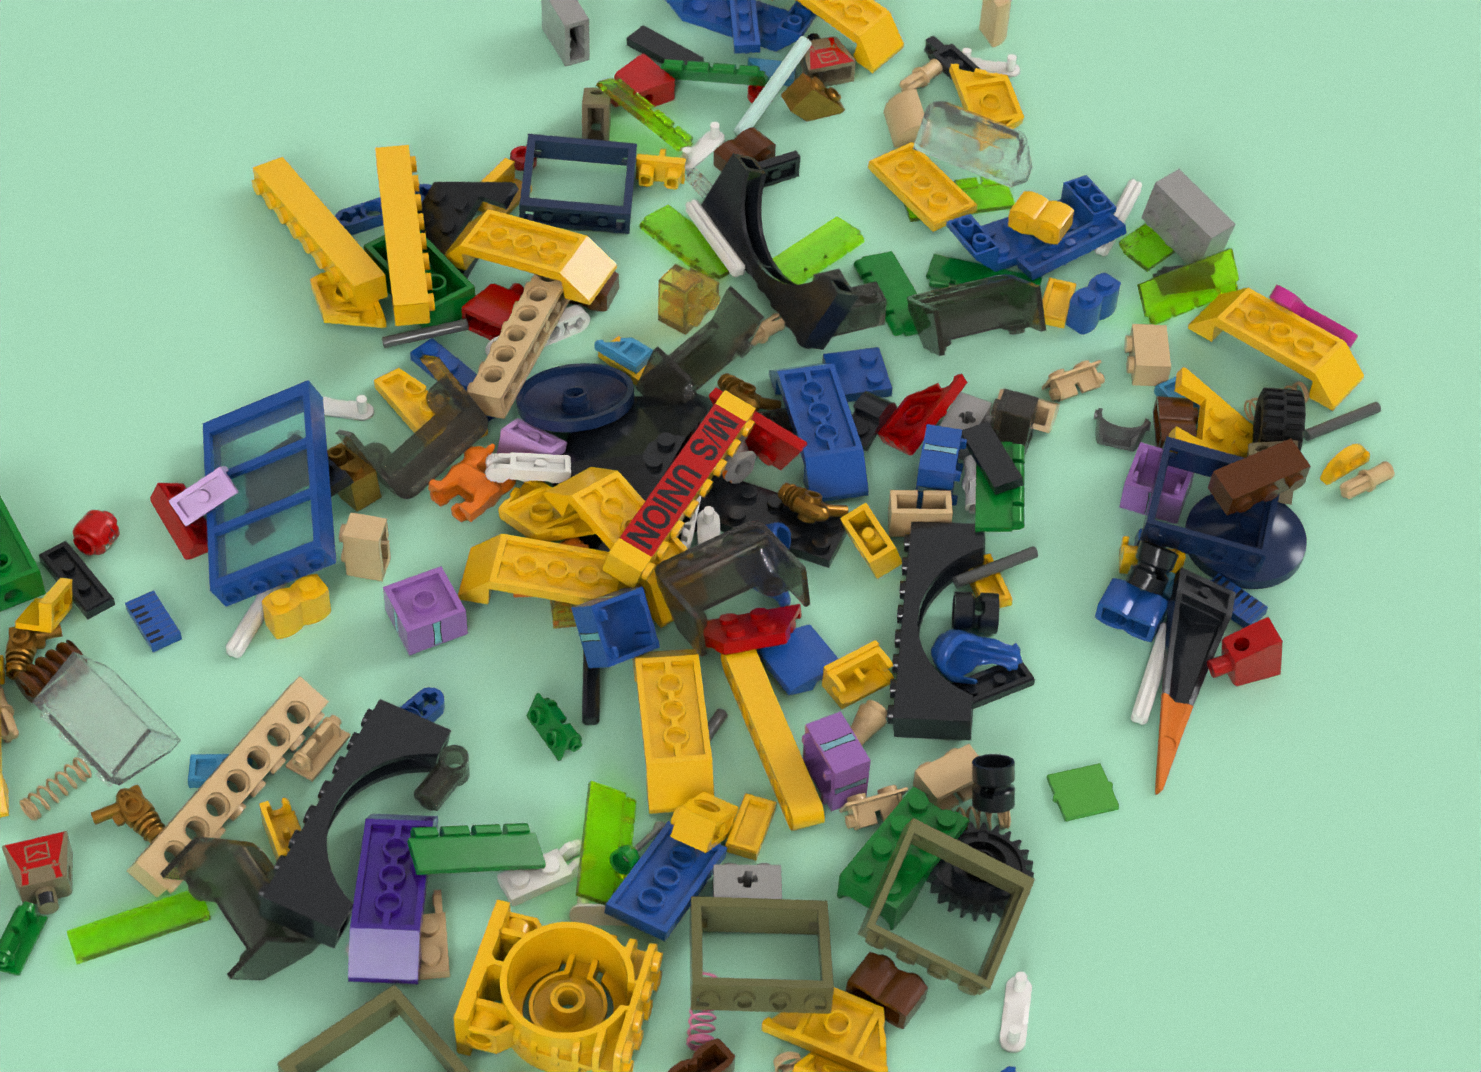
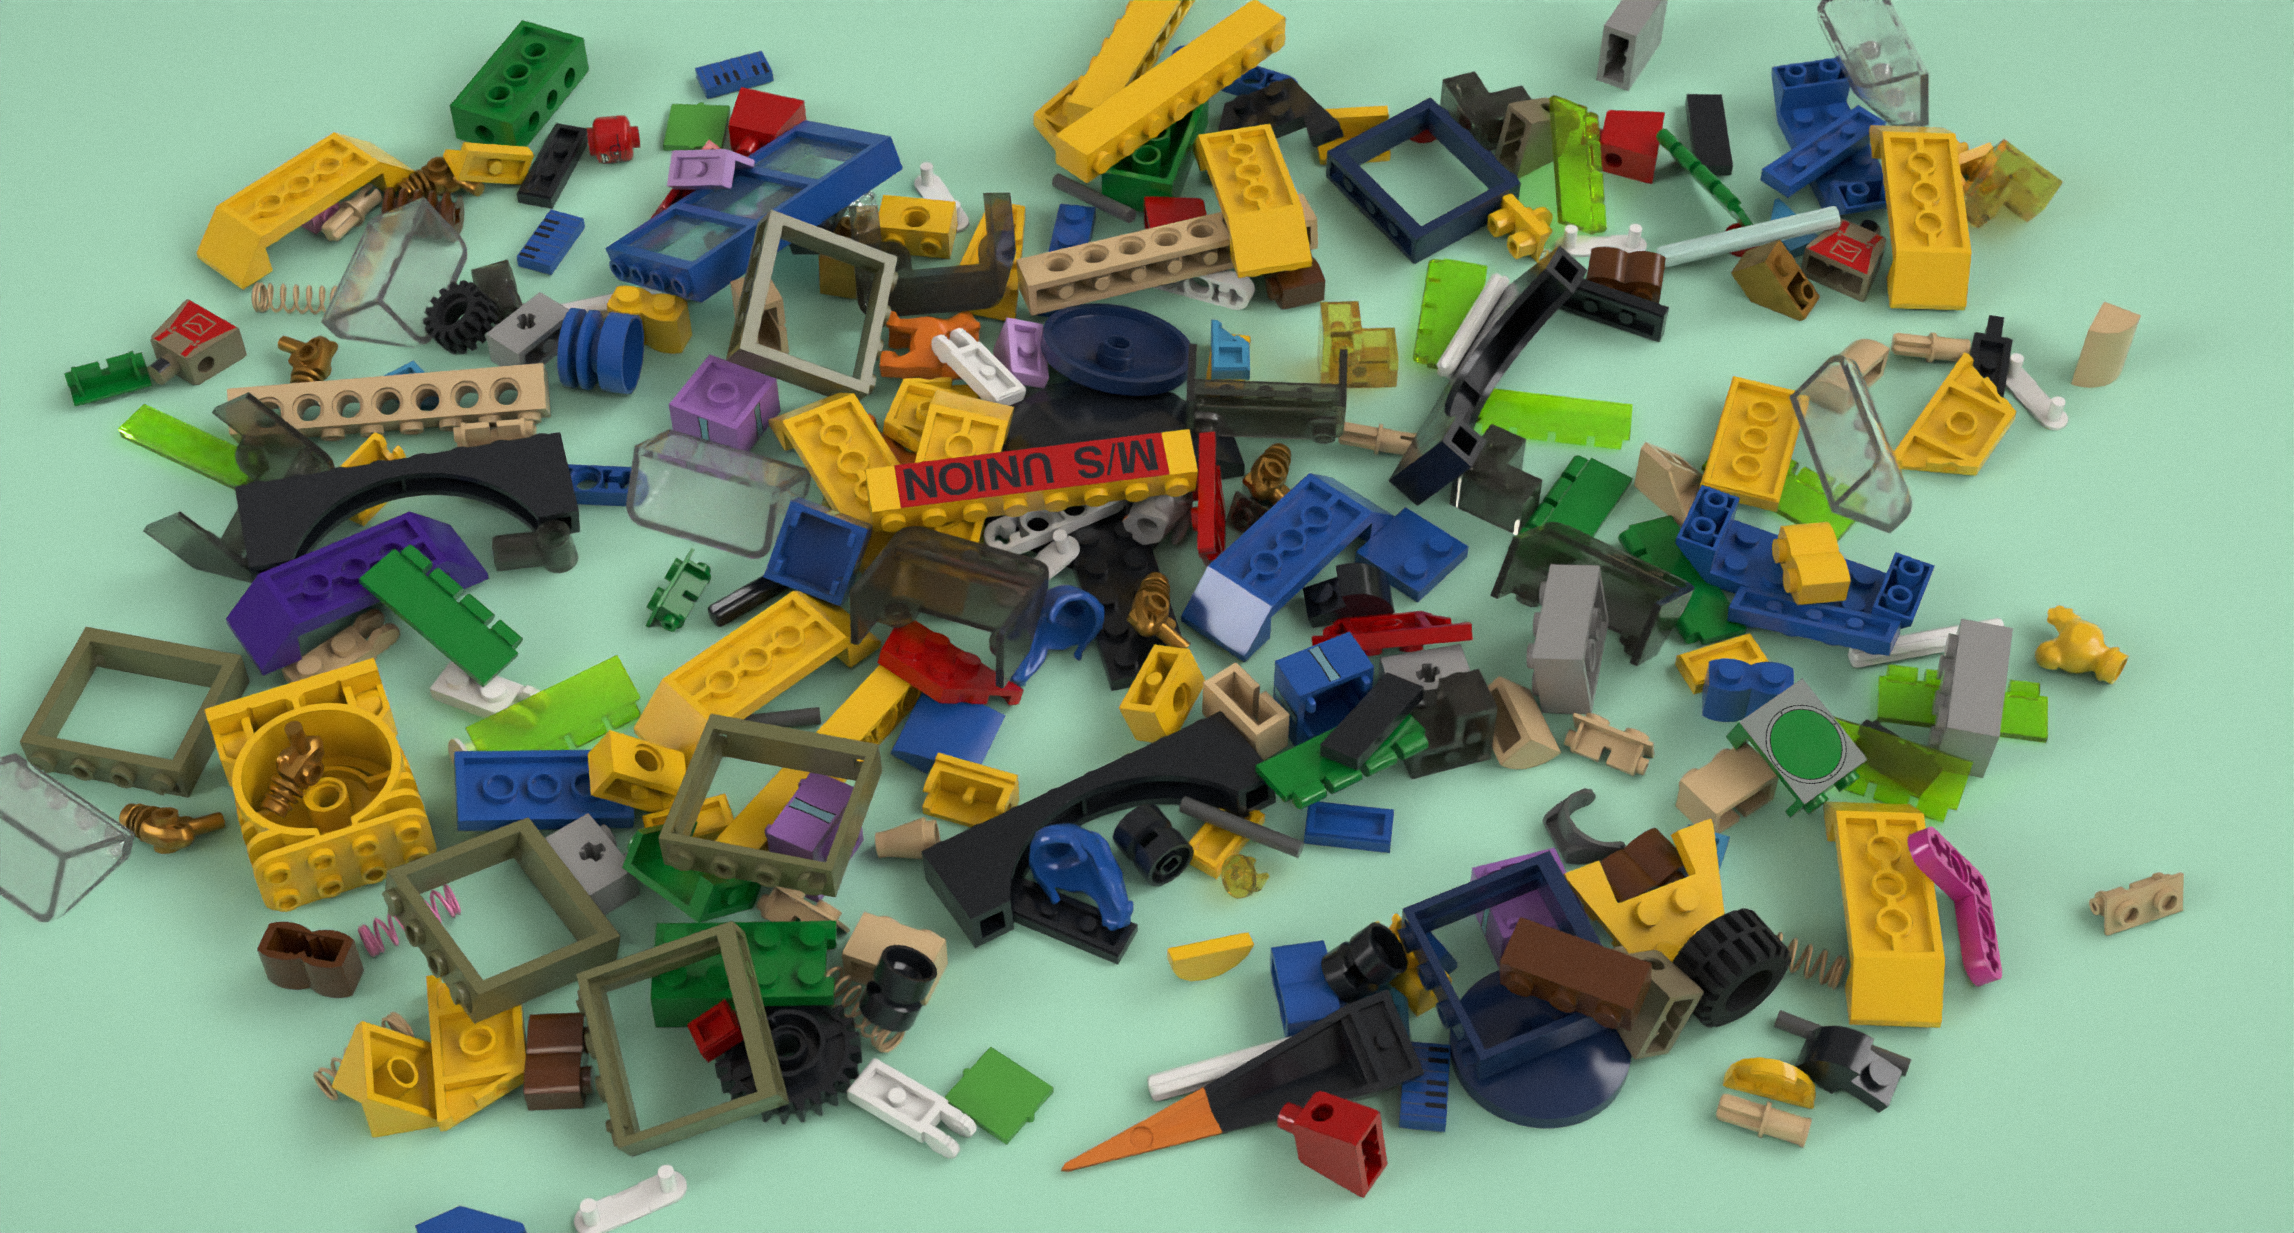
camera: 55 degrees right, 0 degrees up
(98, 438) = (733, 74): none -> blue tile
(124, 486) = (694, 125): none -> bright green piece
(170, 670) = (500, 286): none -> clear smoke piece
(172, 449) = (761, 118): none -> red torso
(200, 716) = (449, 307): none -> black tyre
(241, 677) = (528, 333): none -> light grey brick
(310, 642) = (600, 350): none -> blue wheel
(364, 418) = (919, 224): none -> yellow brick
(388, 528) = (751, 355): none -> olive window
(495, 657) = (712, 492): none -> clear windscreen
(543, 996) = (297, 766): none -> pearl gold piece
(561, 120) = (1478, 109): none -> clear smoke brick
(626, 856) = (547, 738): green hinge -> none
(800, 715) = (779, 748): none -> olive window
(810, 847) = (693, 892): none -> green panel
(914, 240) = (1667, 481): none -> tan slope
(942, 892) = (716, 1031): none -> red tile
(1000, 344) = (1568, 639): none -> light grey brick
(1028, 590) = (1240, 876): none -> clear yellow plate
(1038, 519) = (1349, 826): none -> blue tile
(1063, 835) = (909, 1107): none -> white hinge
(1076, 633) = (1209, 957): none -> yellow tile
(1161, 299) = (1801, 746): none -> panel
(1179, 158) = (2079, 648): none -> yellow animal
(1350, 254) = (2141, 903): none -> tan hinge
(1362, 424) = (1843, 1059): none -> black brick

